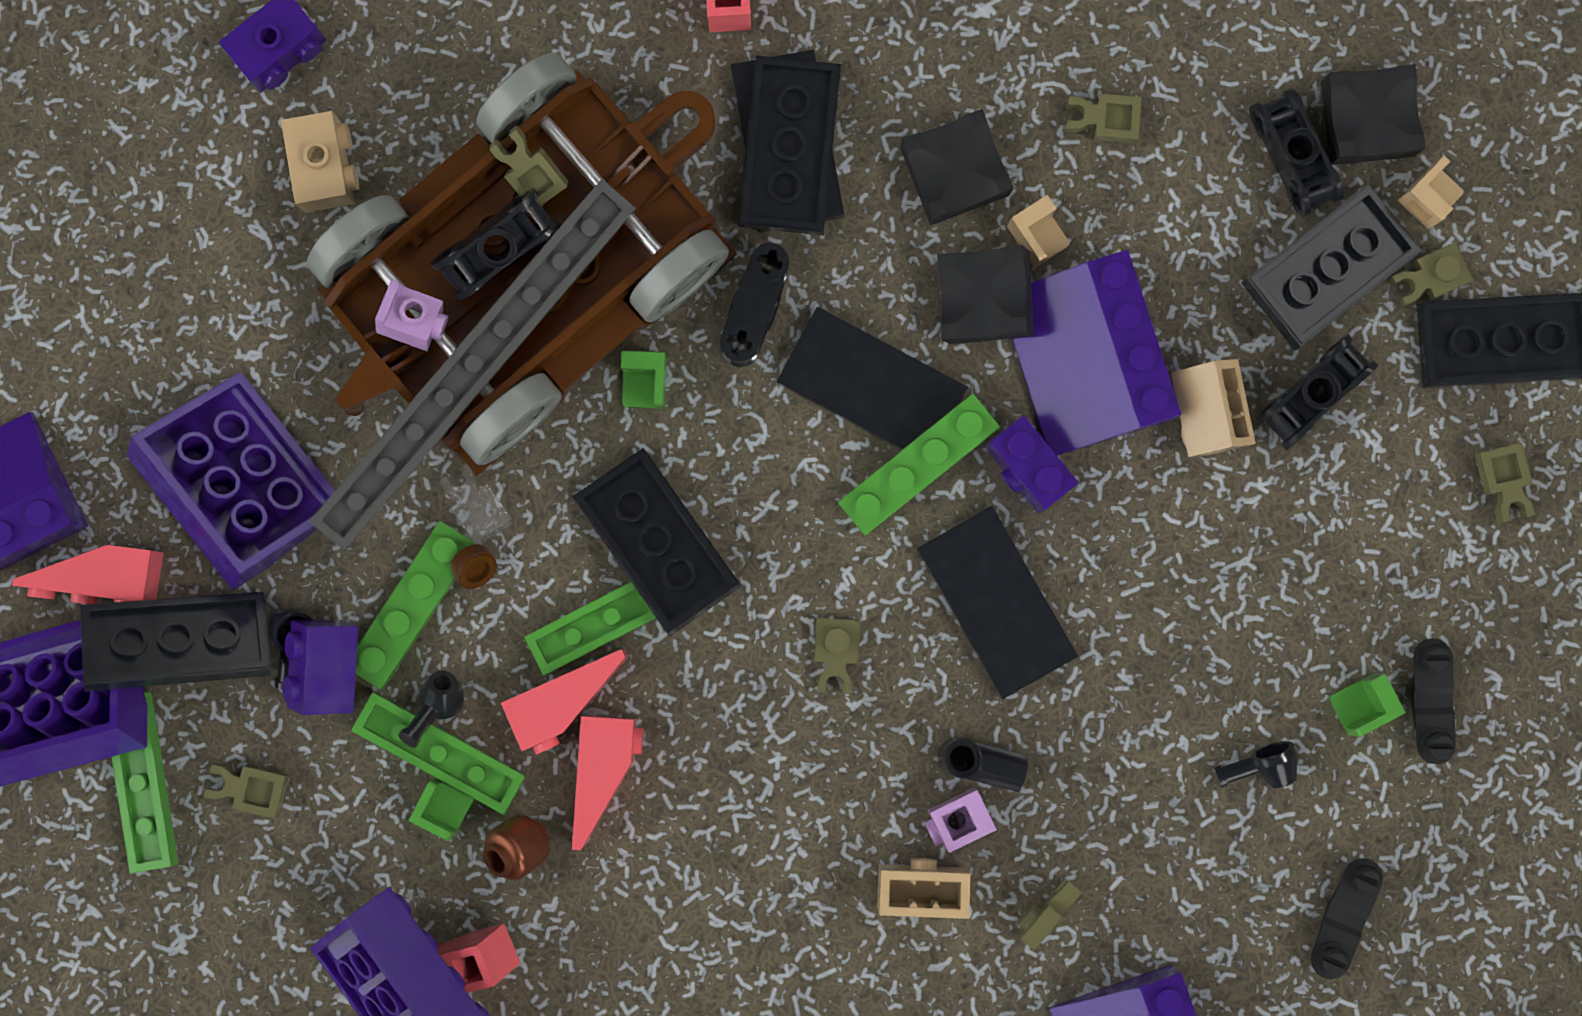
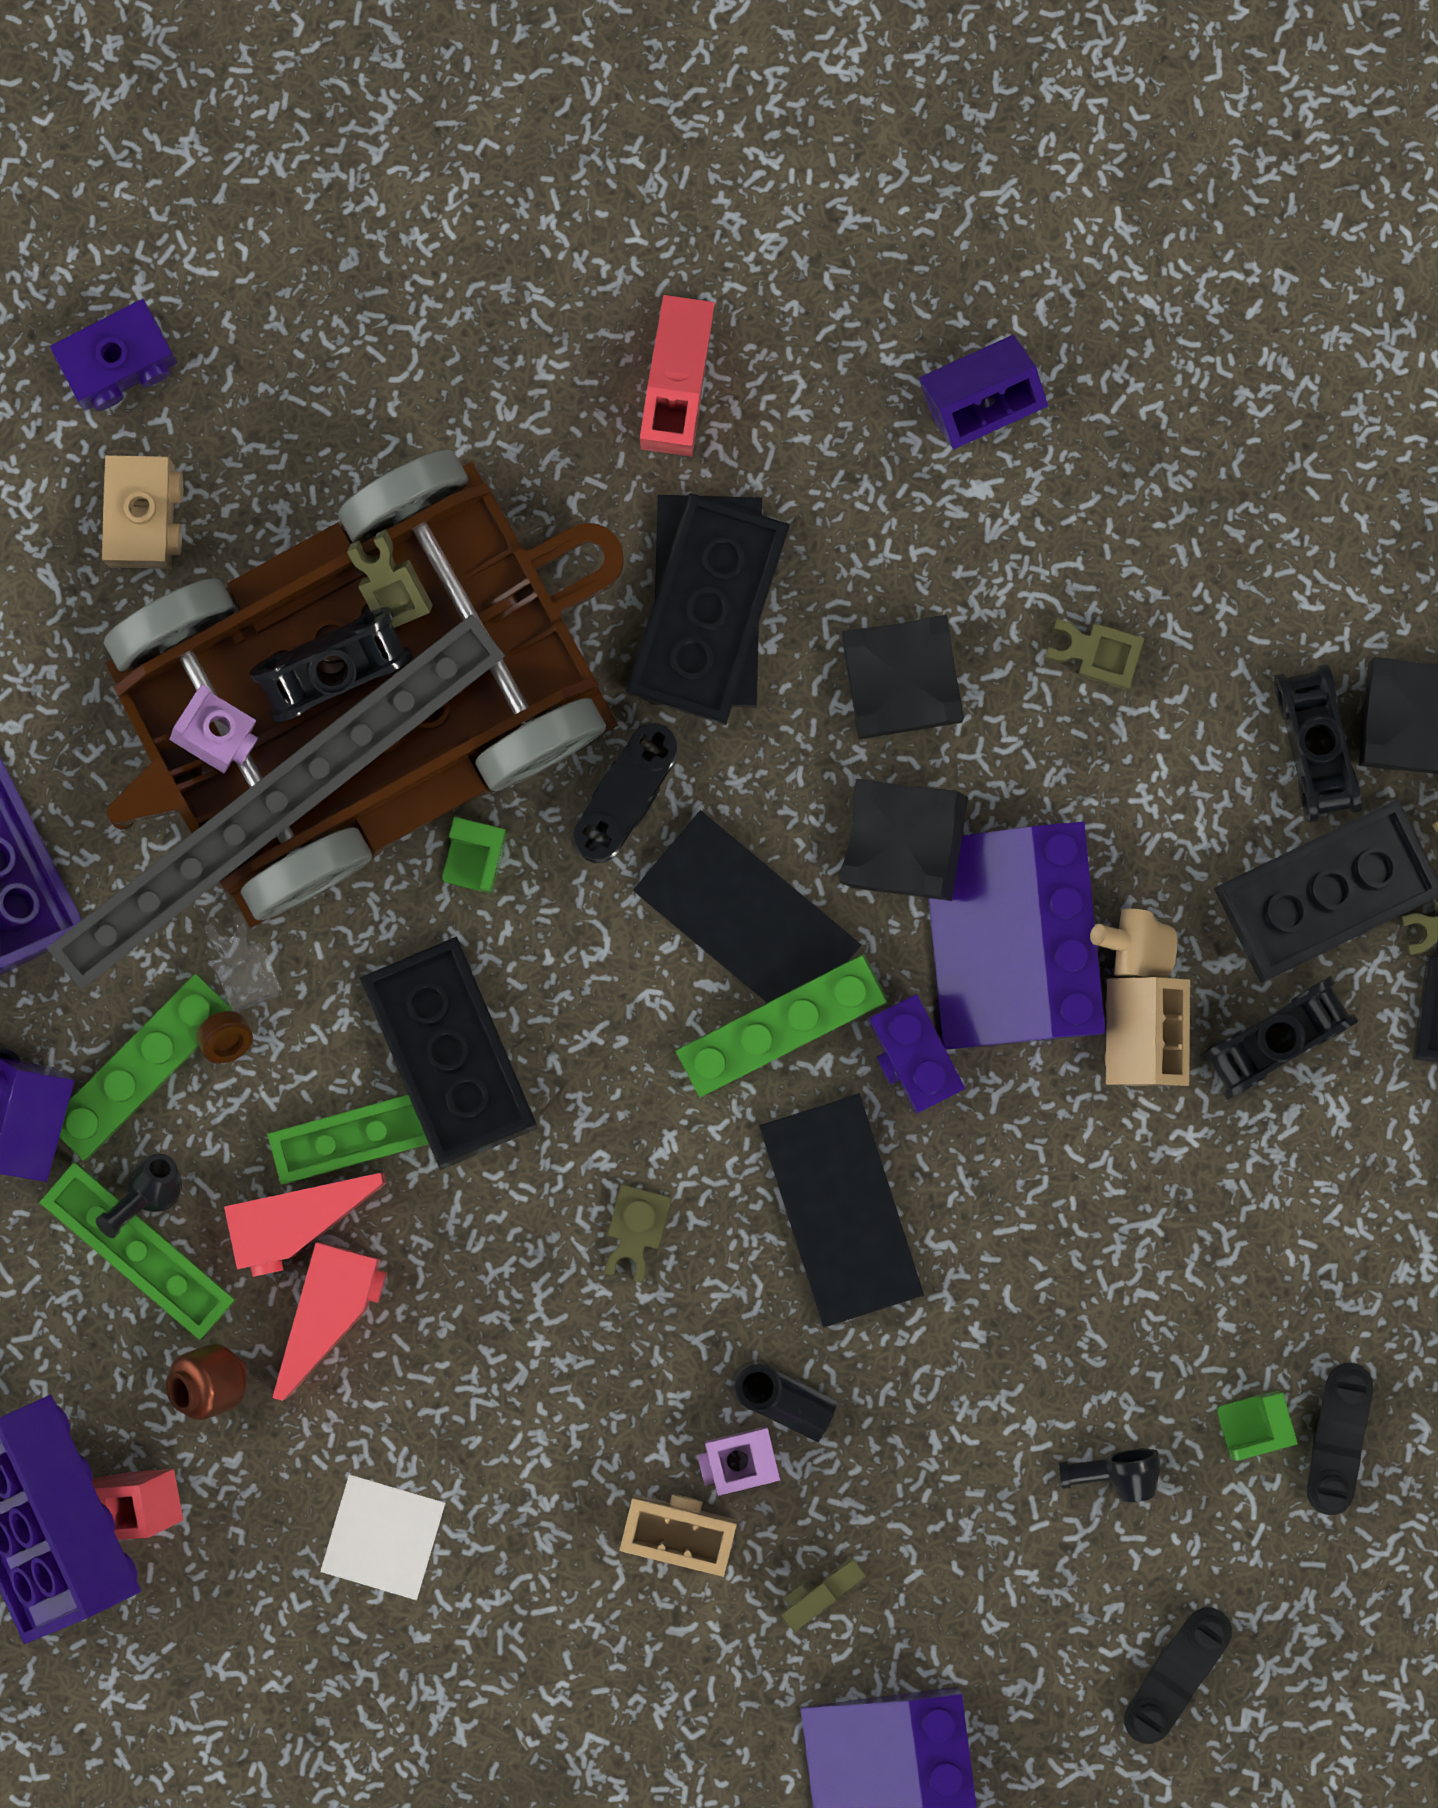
camera: 15 degrees right, 0 degrees up
(441, 809) = (128, 1318): bright green panel -> none
(684, 941) = (382, 1537): none -> white sticker
(1039, 231) = (987, 775): tan panel -> none
(1191, 338) = (1140, 943): none -> tan piece

